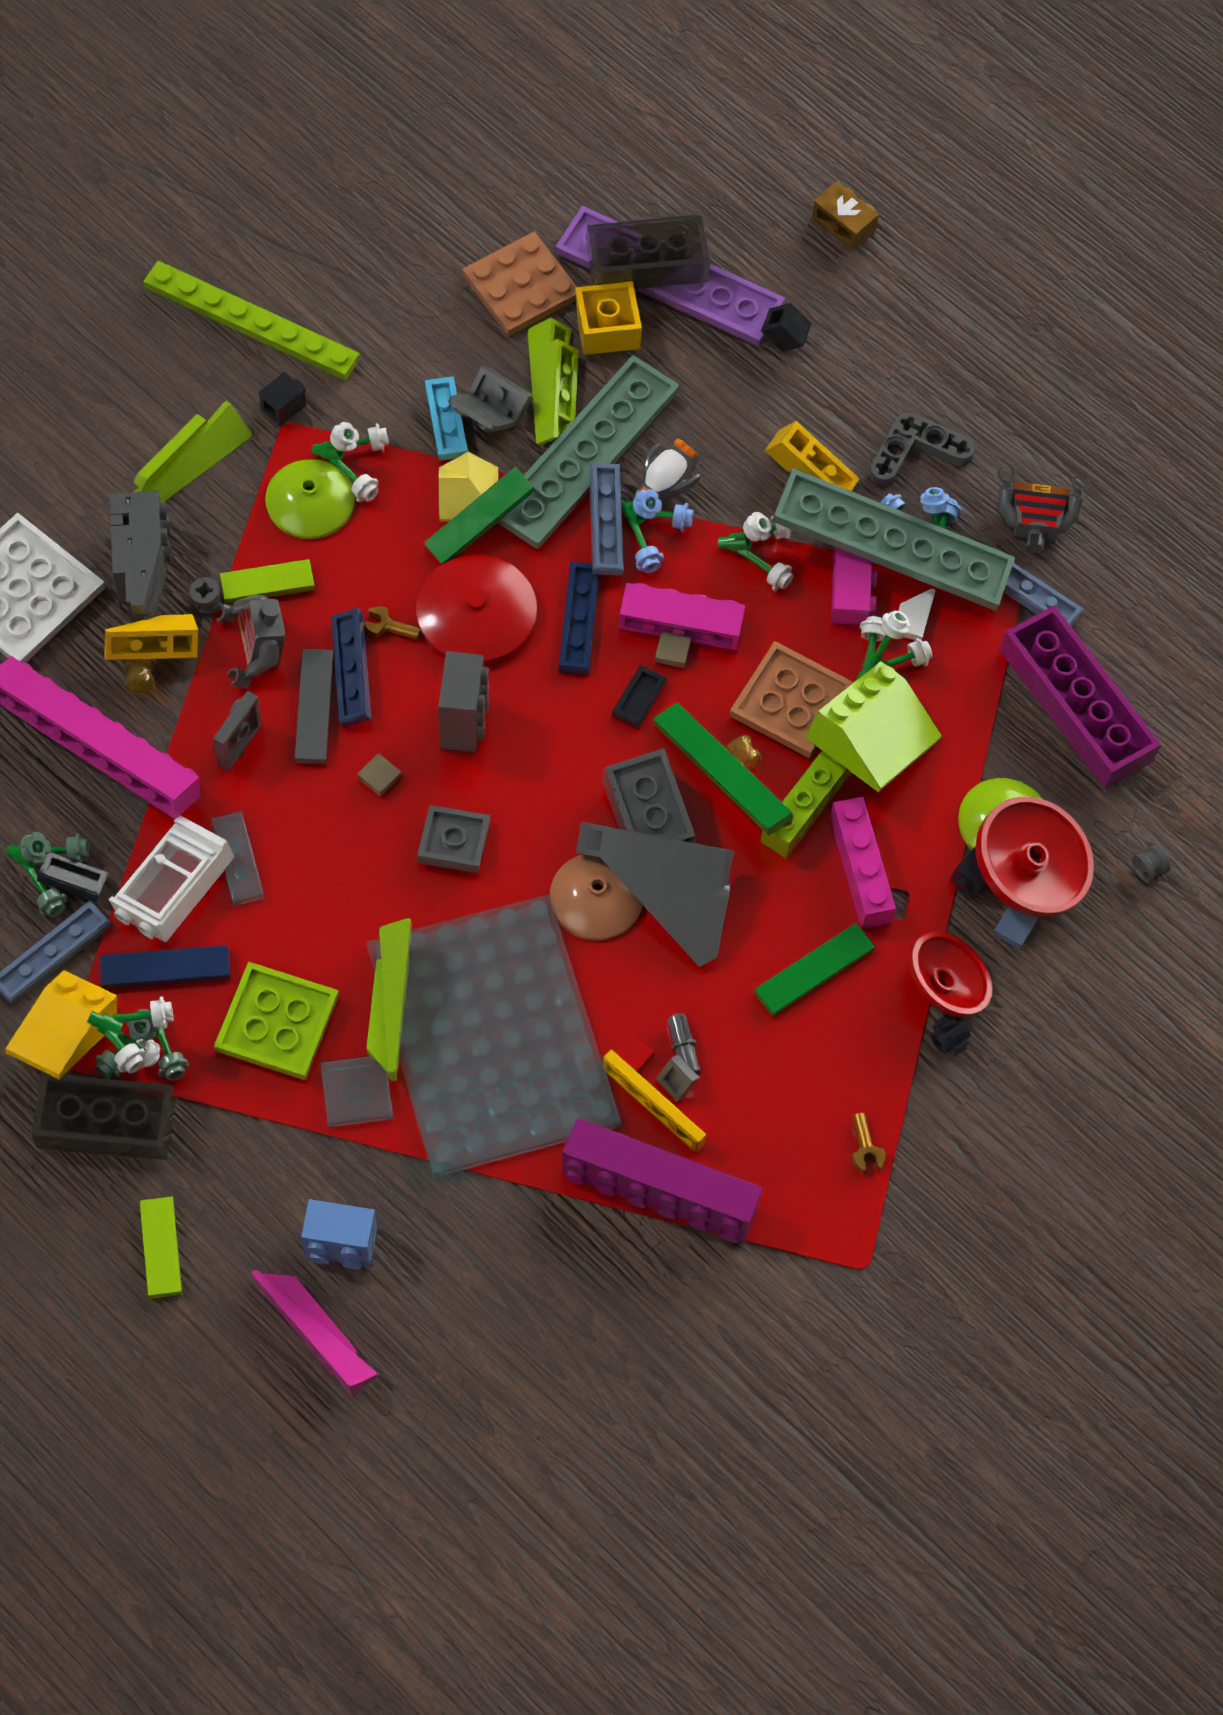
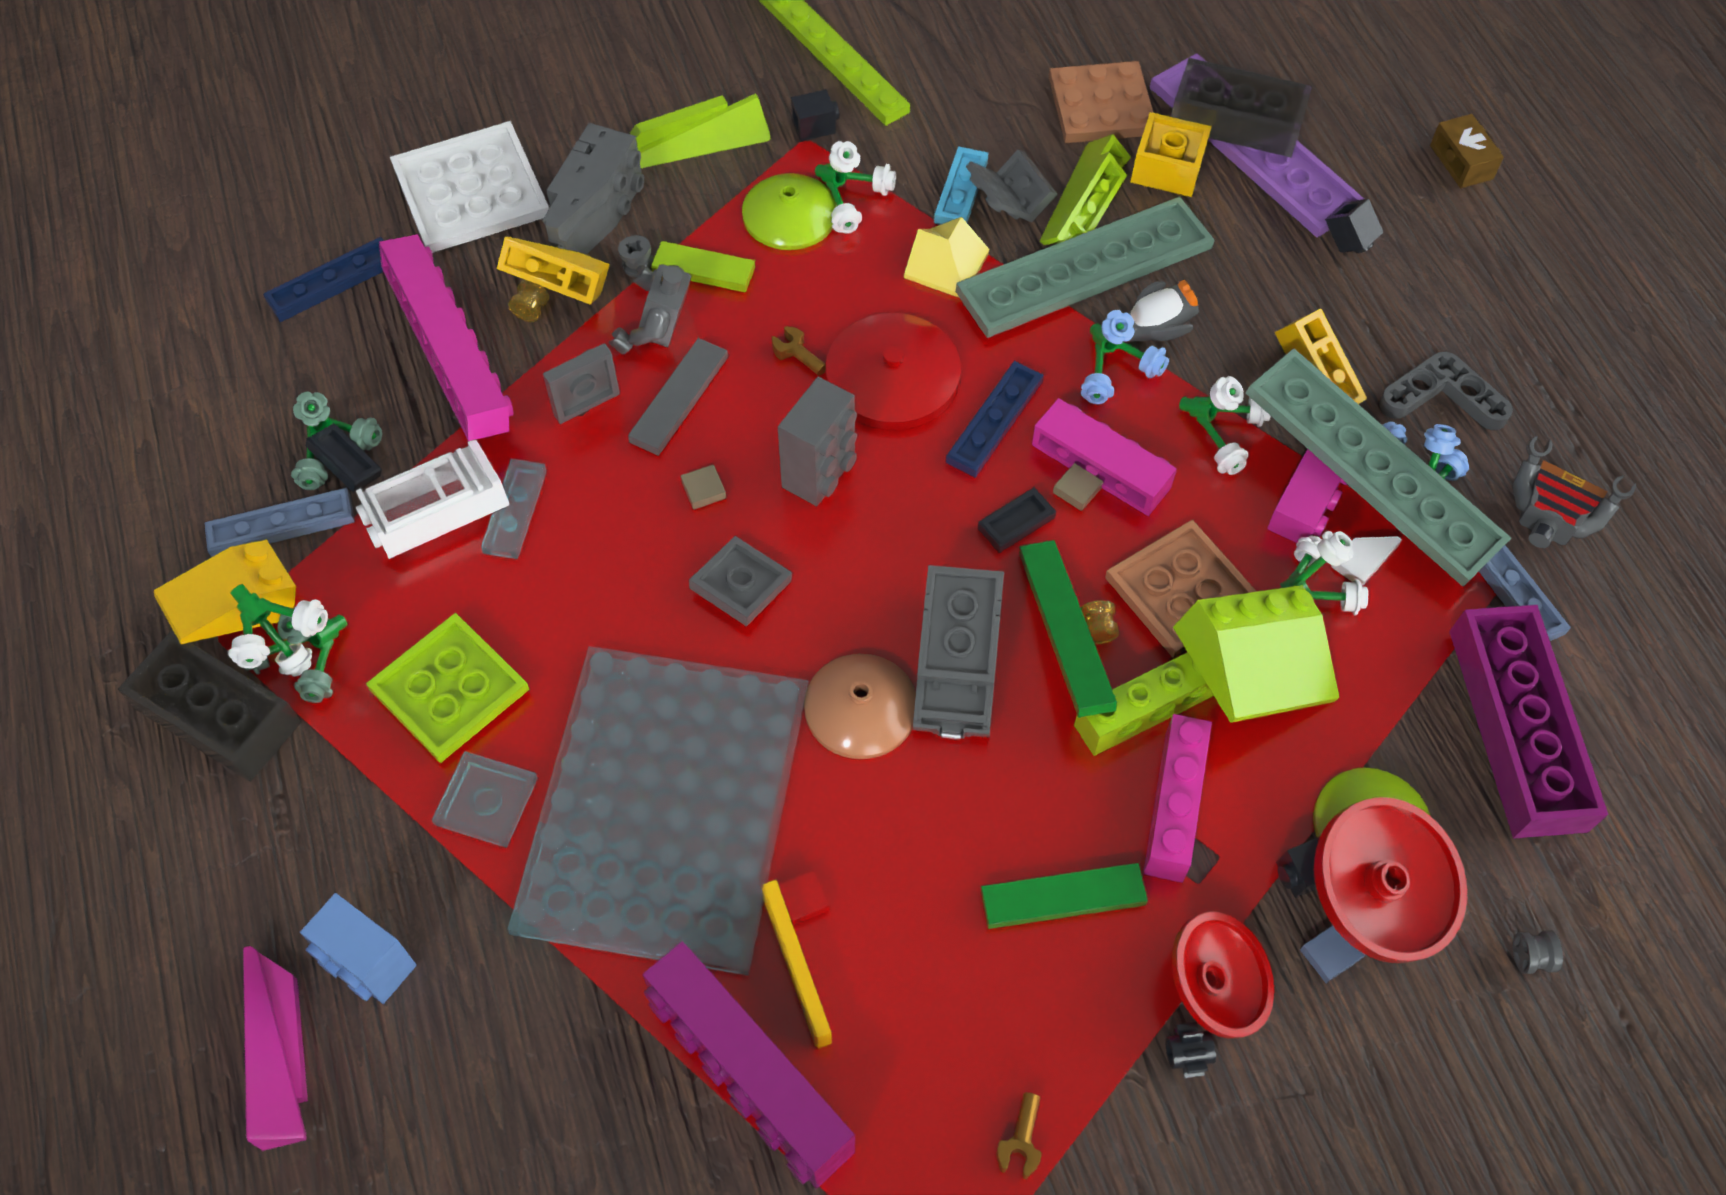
camera: 30 degrees right, 5 degrees down
(160, 1247) = (181, 874): lime tile -> none
(164, 967) = (376, 583): dark blue tile -> none
(351, 667) = (734, 374): dark blue tile -> none
(389, 996) = (571, 714): lime wedge -> none
(480, 516) = (943, 281): green tile -> none
(606, 519) = (1071, 333): sand blue tile -> none
(674, 879) = (947, 723): dark grey panel -> none
(677, 1078) = (837, 948): dark grey tile -> none
(682, 1041) = (866, 915): dark grey axle -> none

